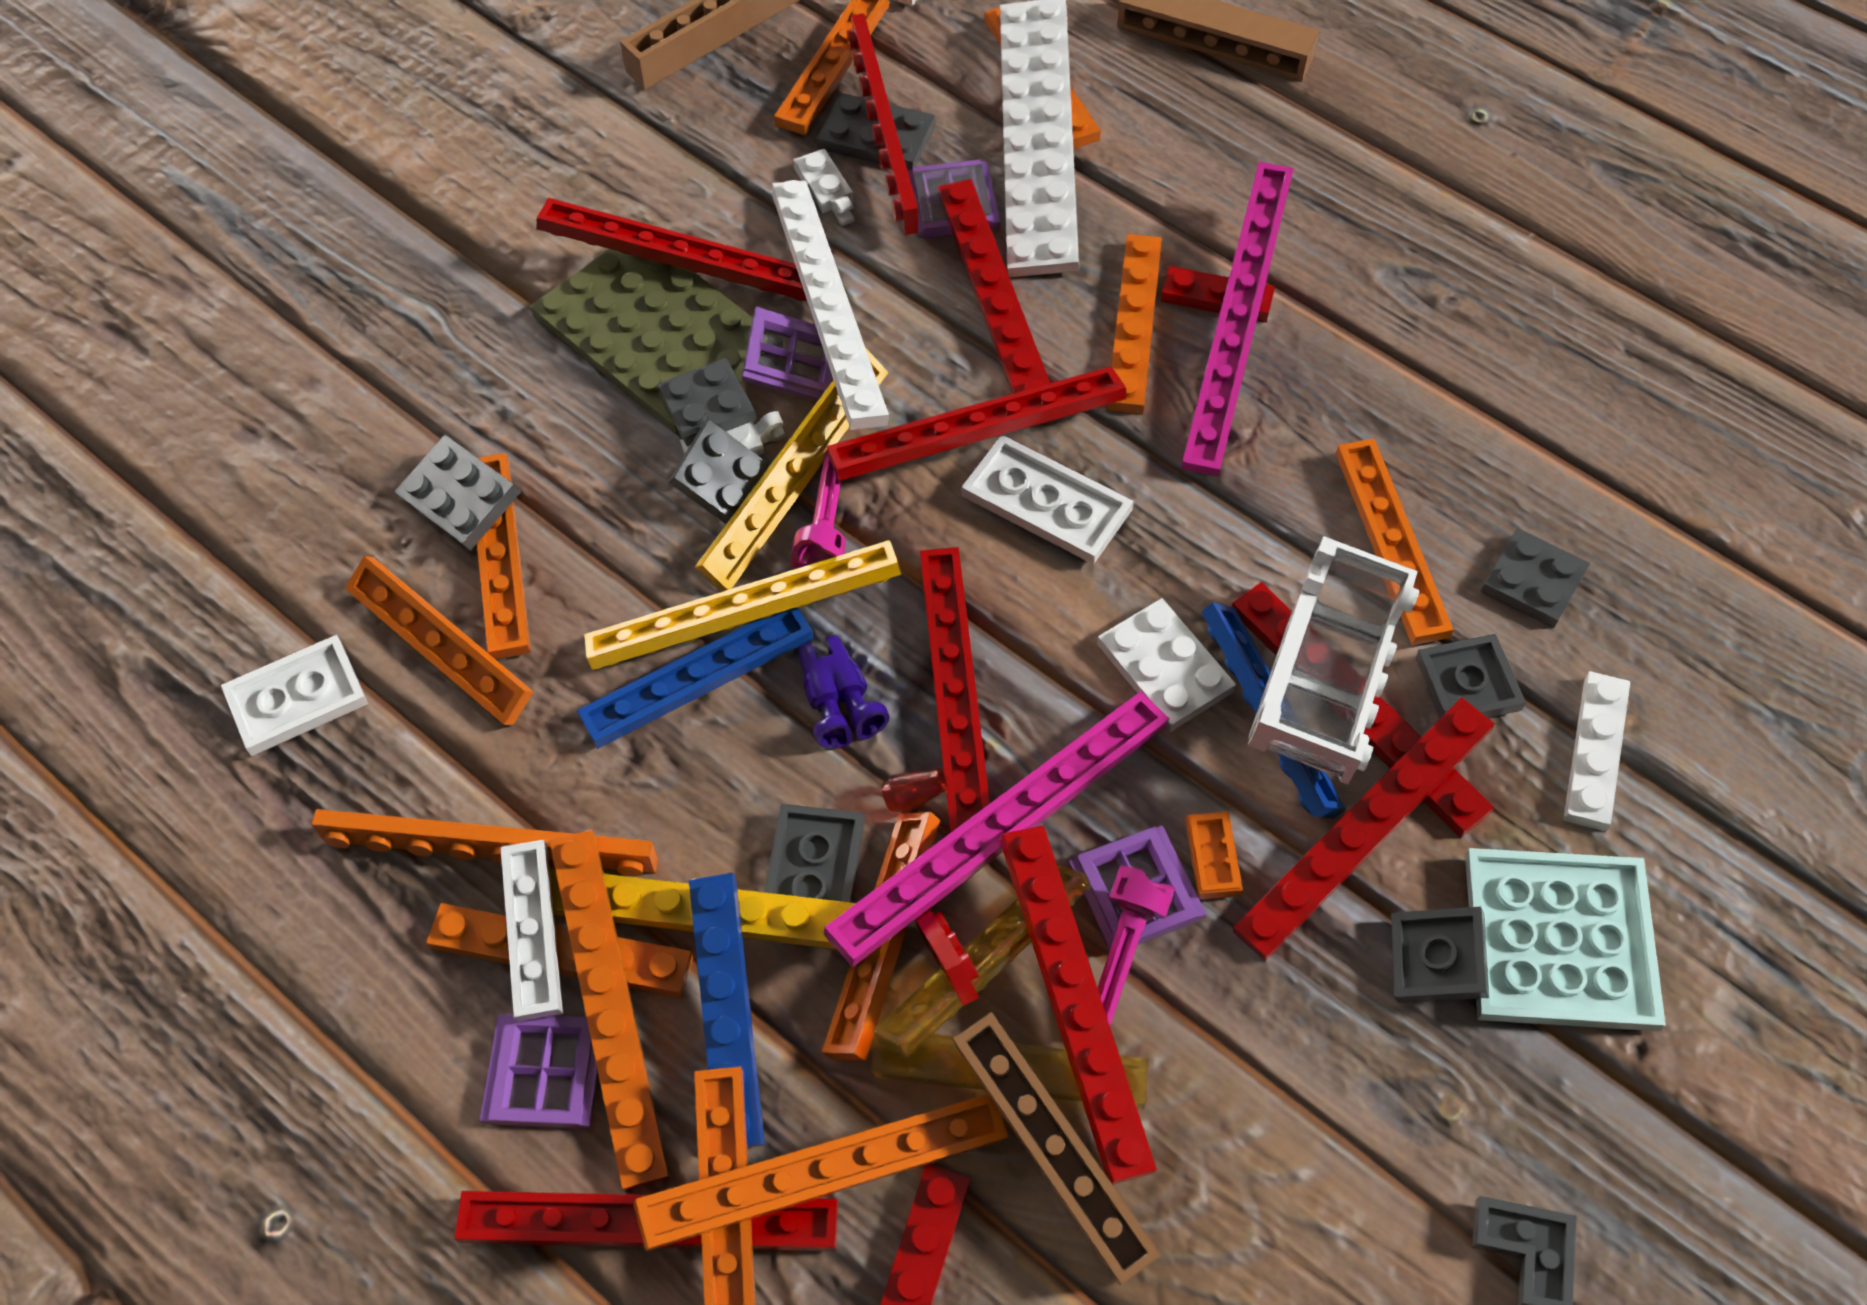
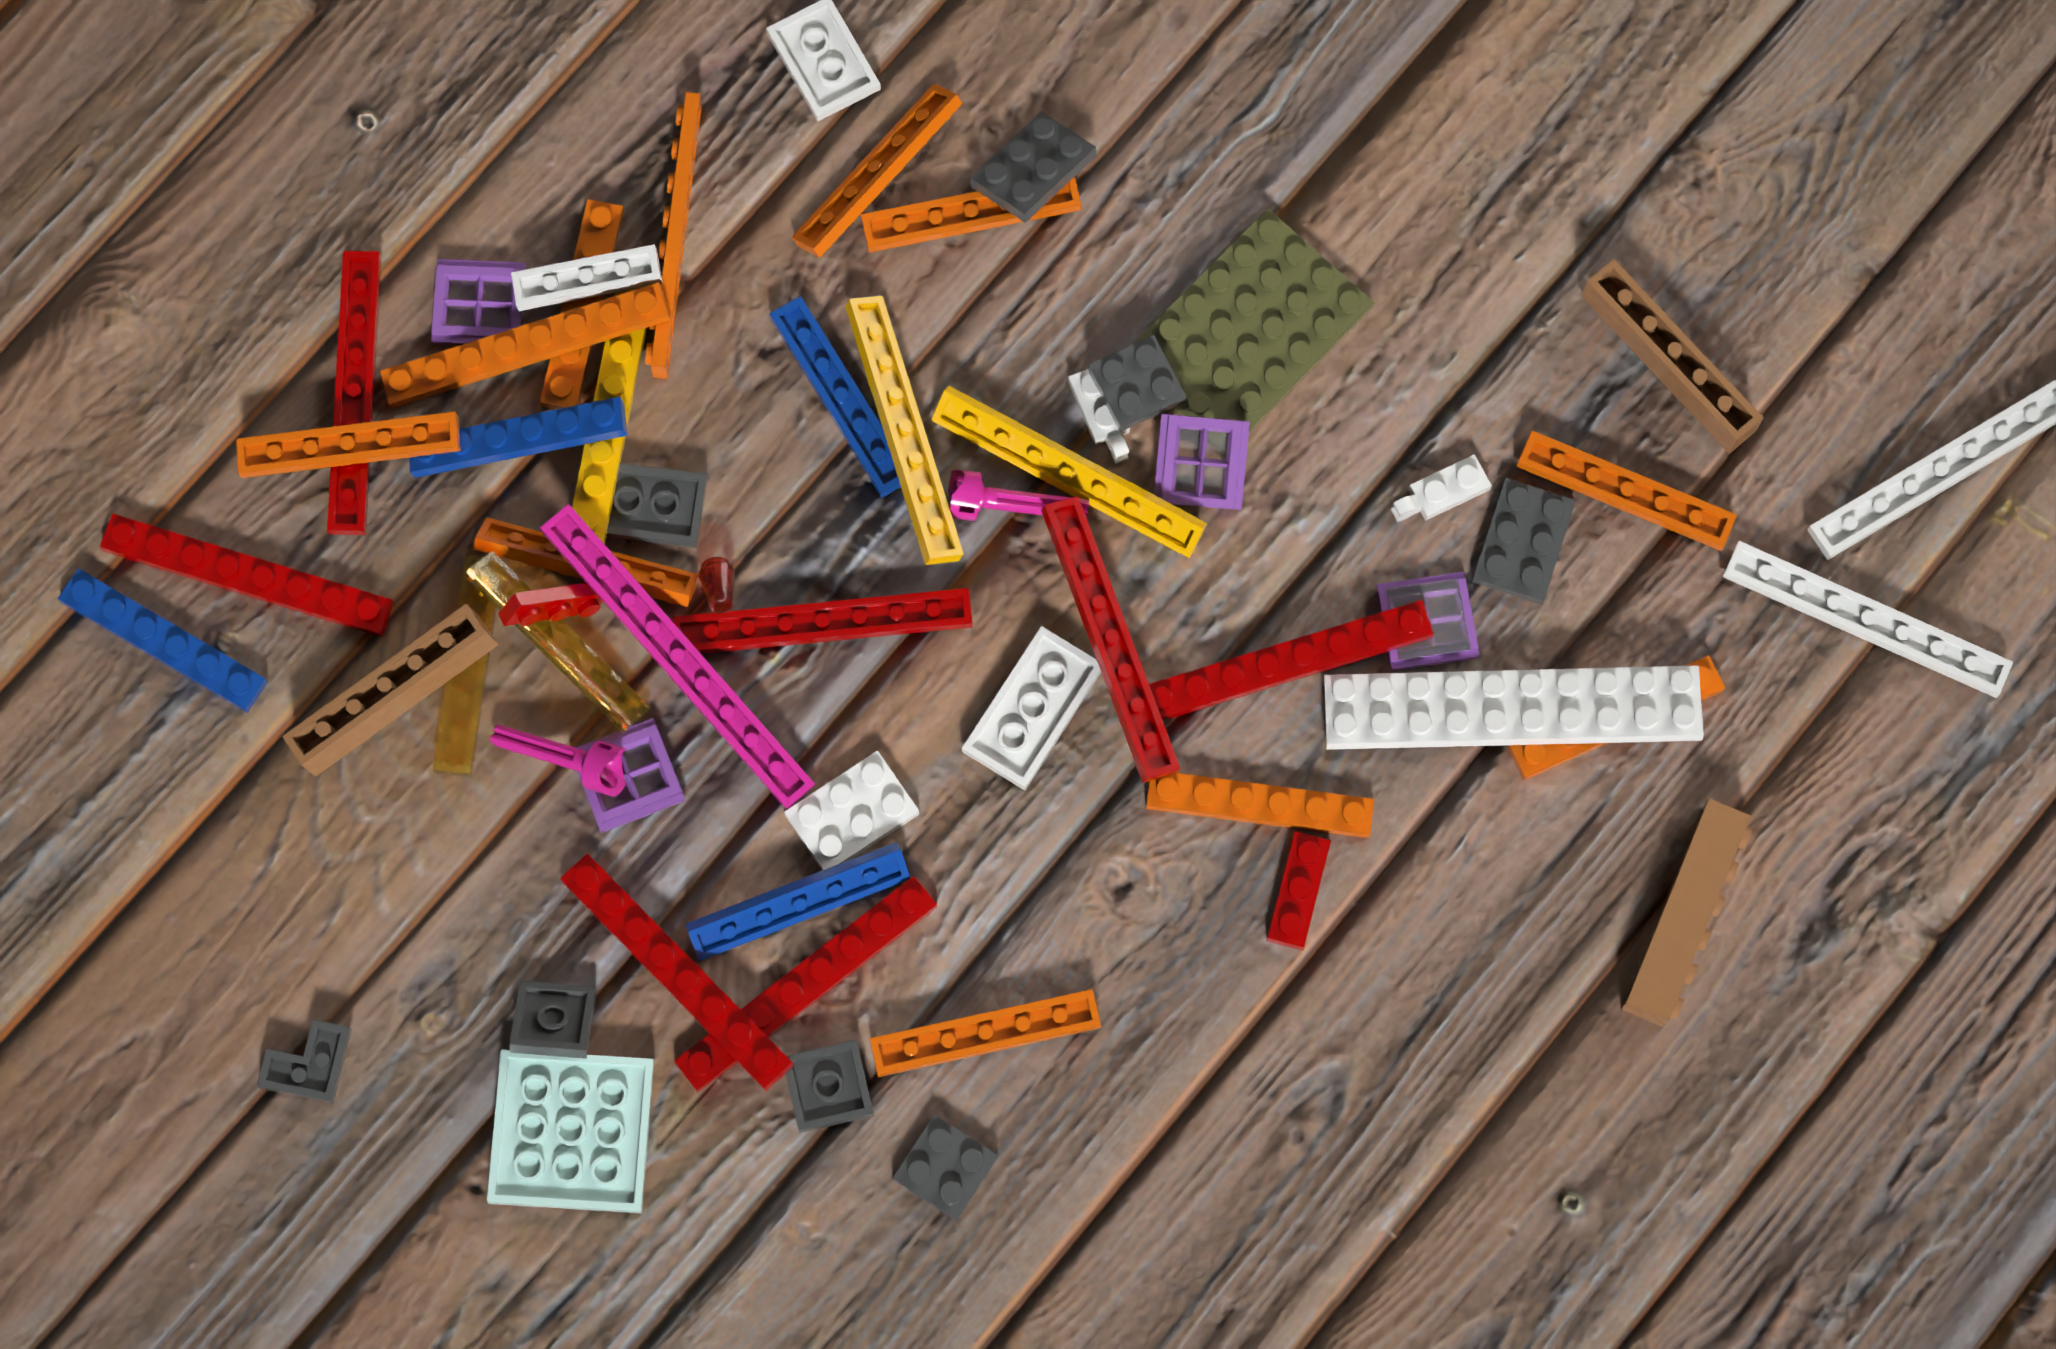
camera: 85 degrees right, 15 degrees up
(670, 248) = (1327, 345): red plate -> none
(718, 471) = (1054, 400): plate -> none
(817, 1171) = (373, 505): orange plate -> none
(830, 307) = (1263, 491): white plate -> none
(836, 680) = (831, 517): dark purple piece -> none
(884, 129) = (1524, 536): red plate -> none
(1077, 1006) = (514, 710): red plate -> none
(1213, 855) = (655, 841): orange plate -> none
(1237, 320) = (1252, 900): dark pink plate -> none
(1334, 660) = (810, 939): clear windscreen -> none
(1597, 751) = (757, 1196): white plate -> none

